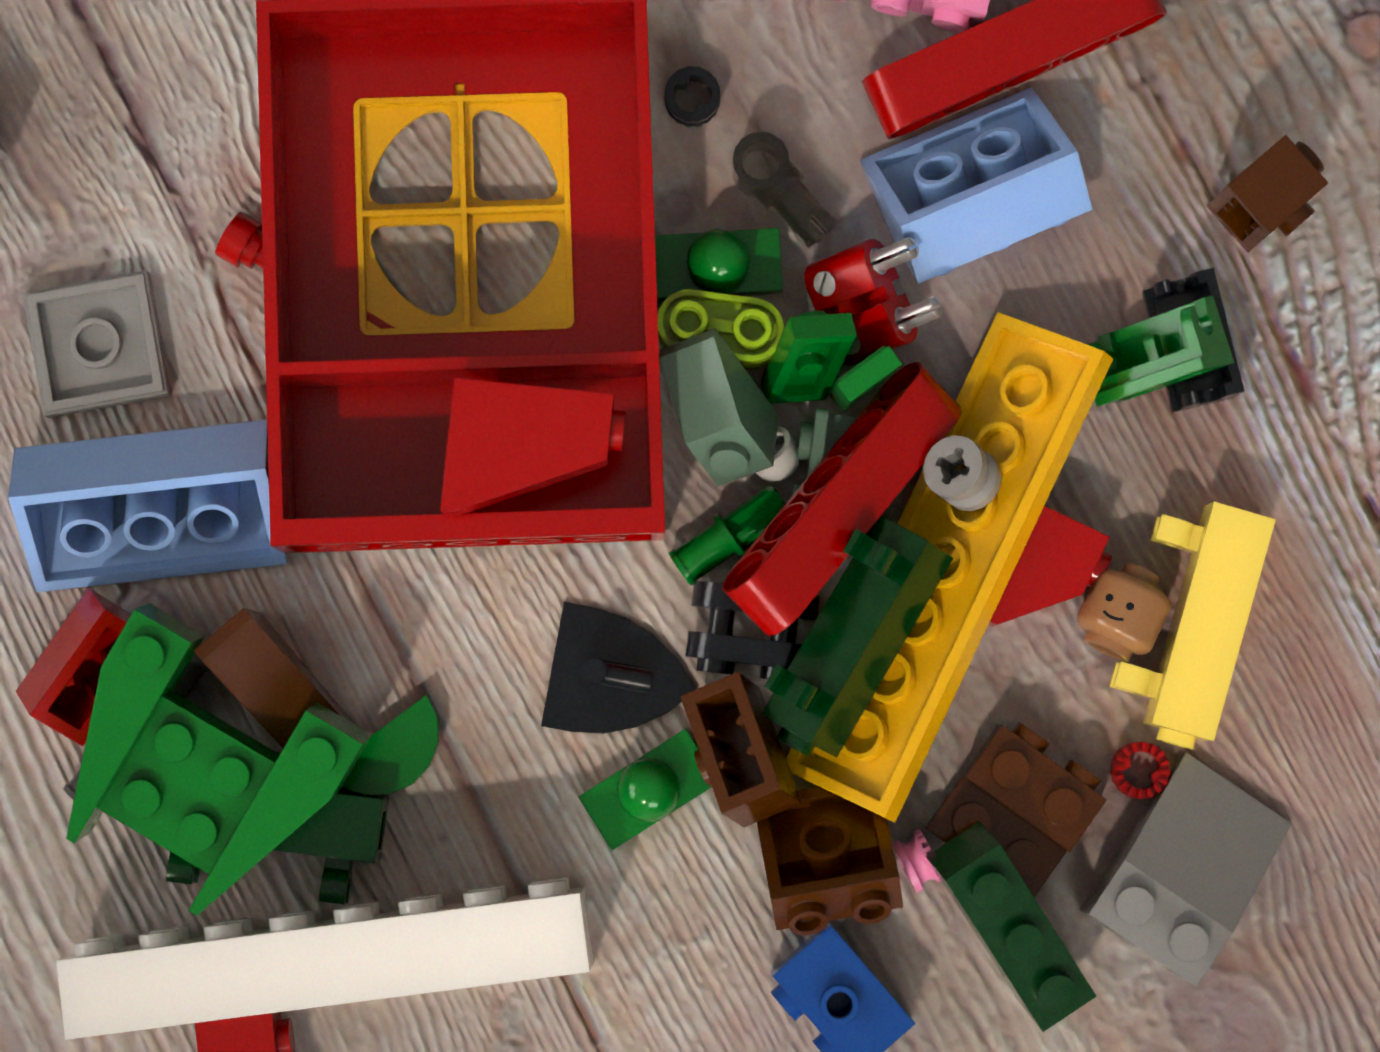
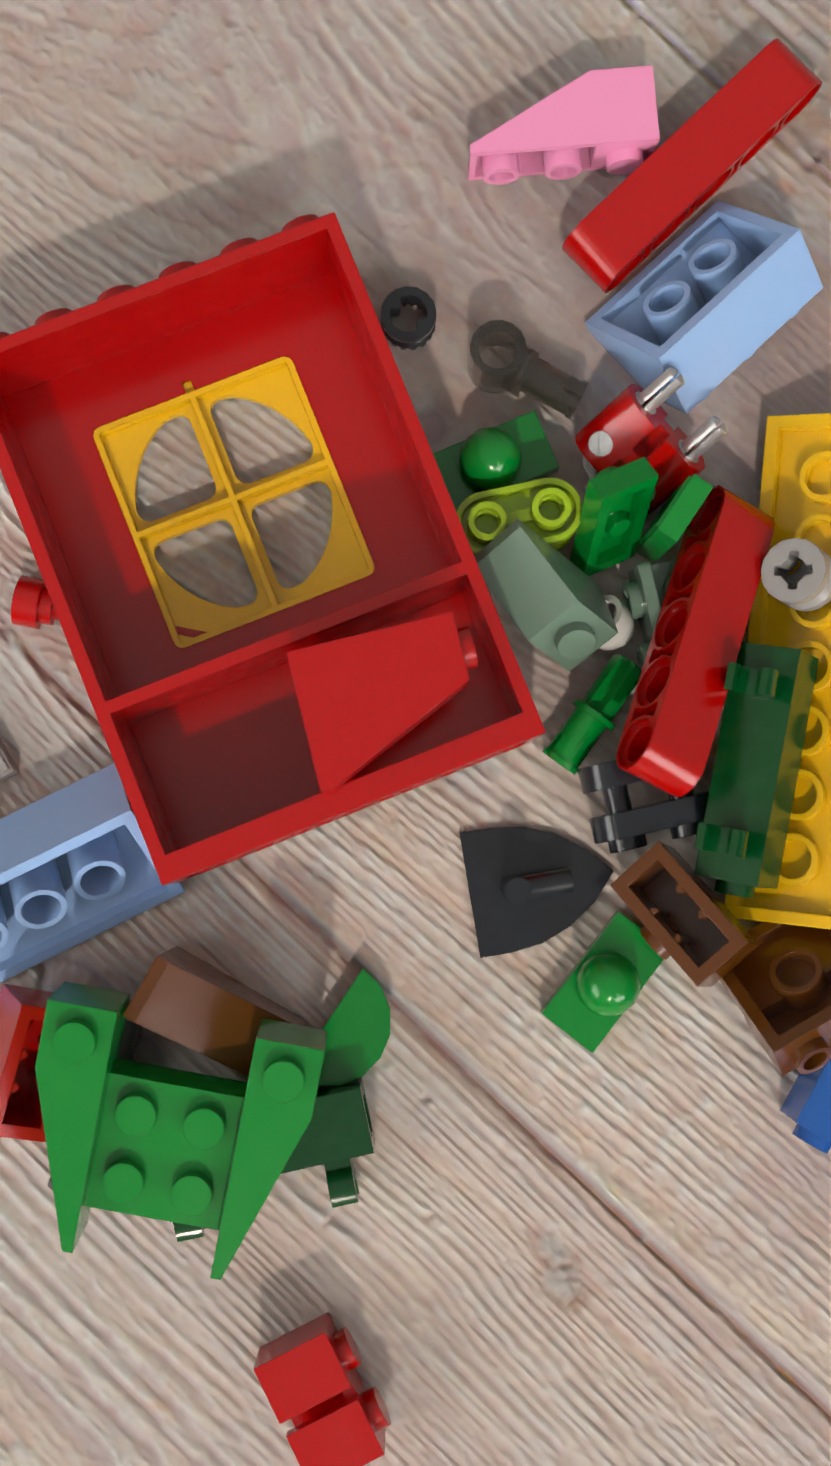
camera: 25 degrees left, 0 degrees up
(324, 962) = (356, 1268): white brick -> none

